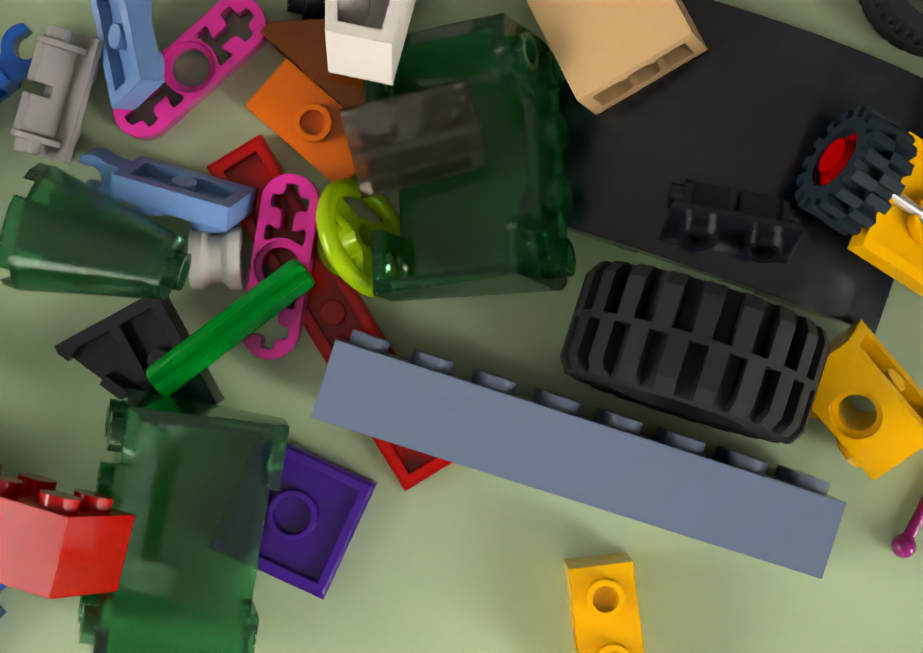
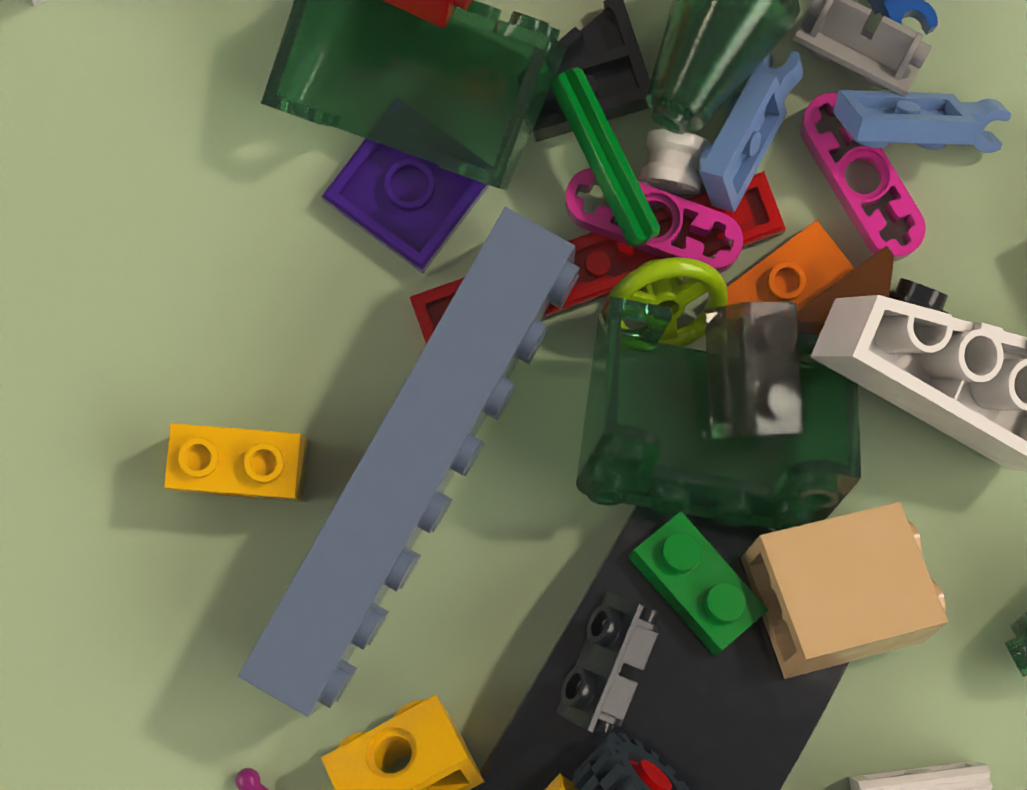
camera: 100 degrees right, 5 degrees down
(633, 151) = (698, 583): none -> green plate
(695, 350) = (489, 598): black tyre -> none

